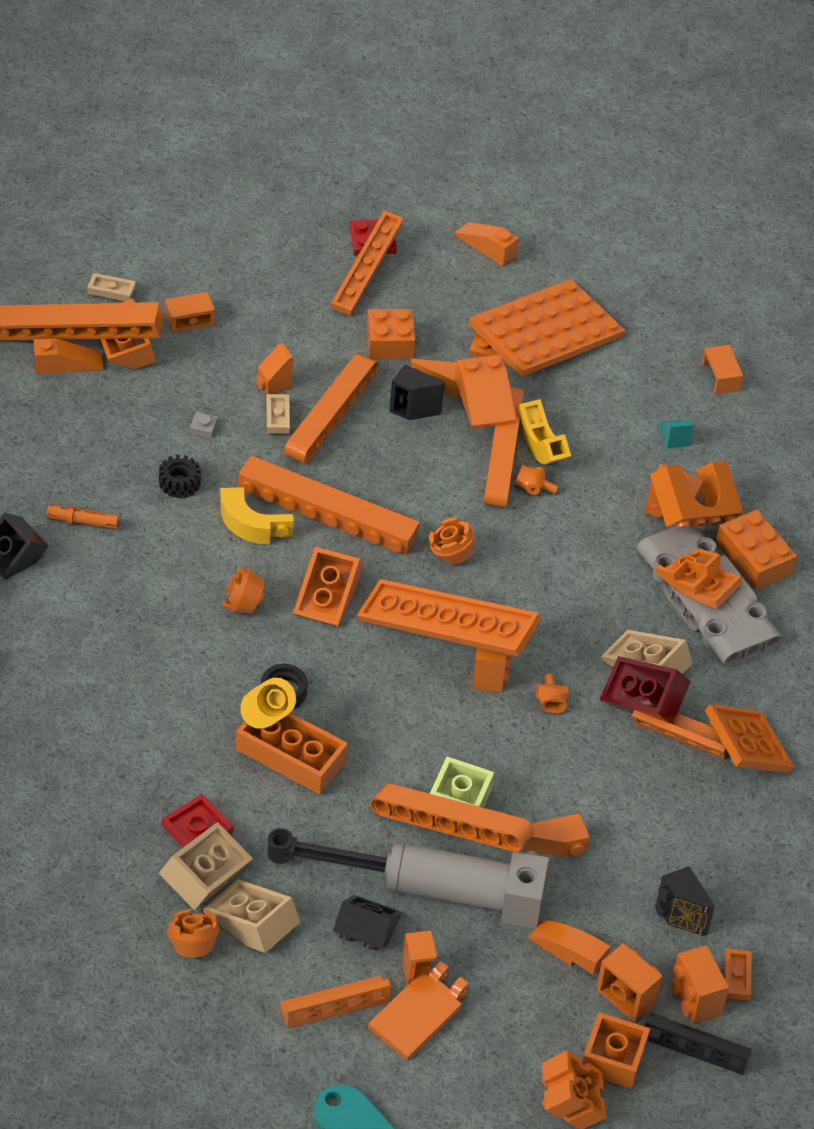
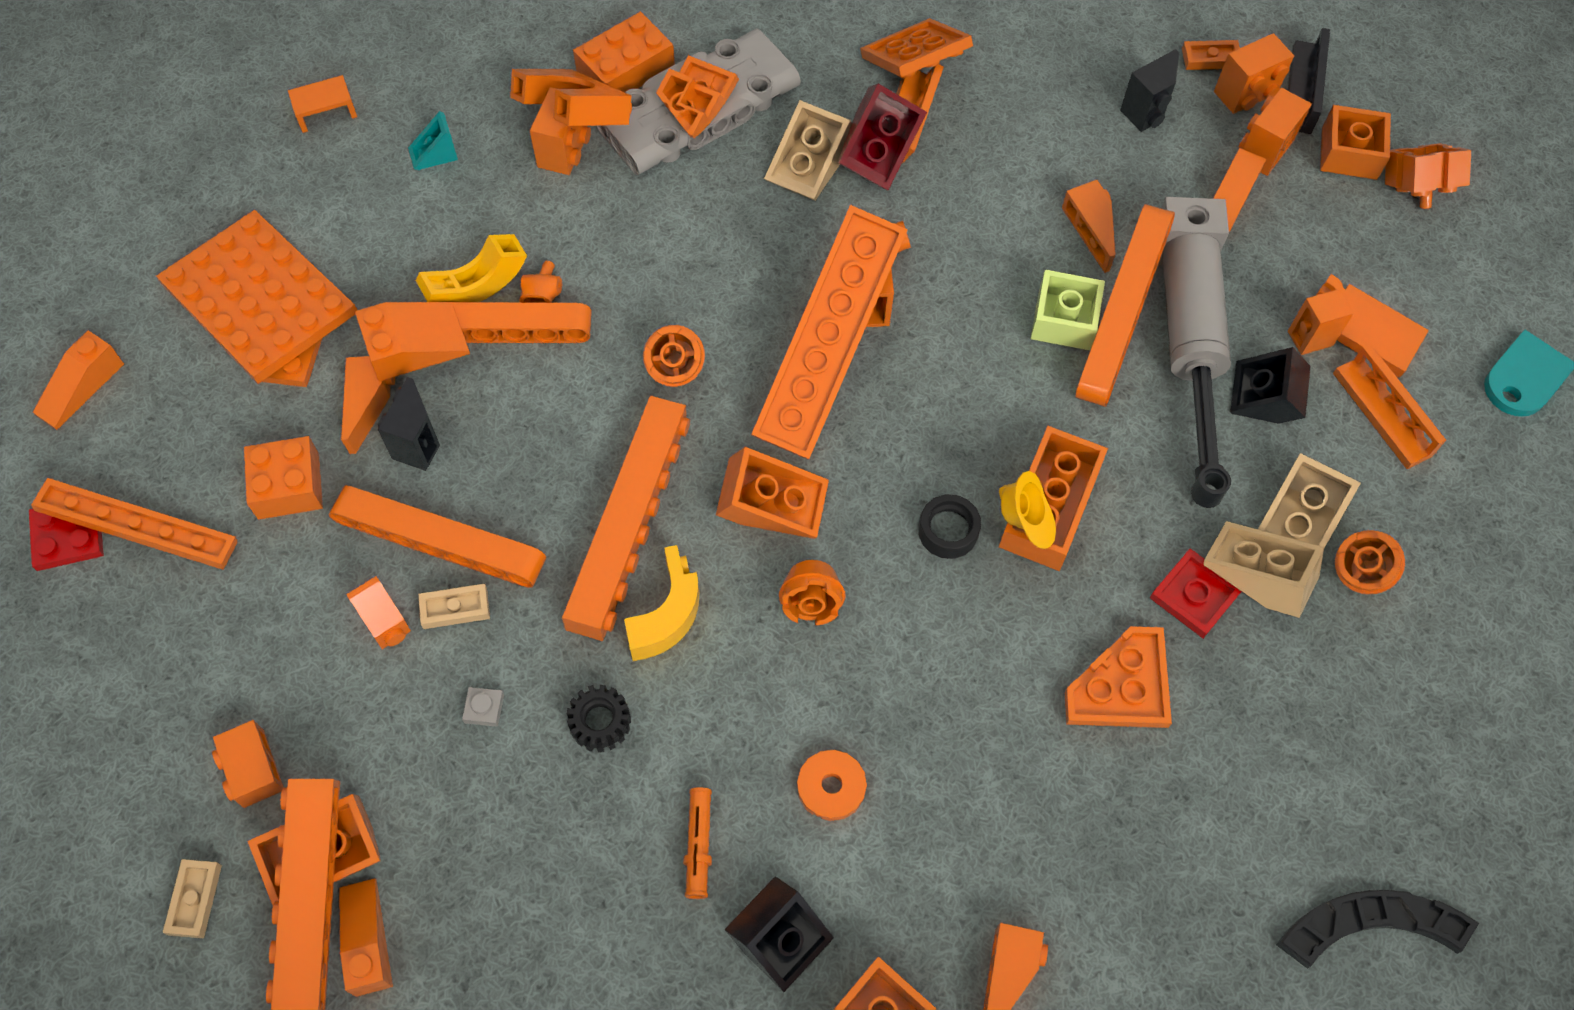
camera: 95 degrees left, 15 degrees up
(105, 580) = (837, 765): none -> orange tile
(136, 765) = (1124, 684): none -> orange plate

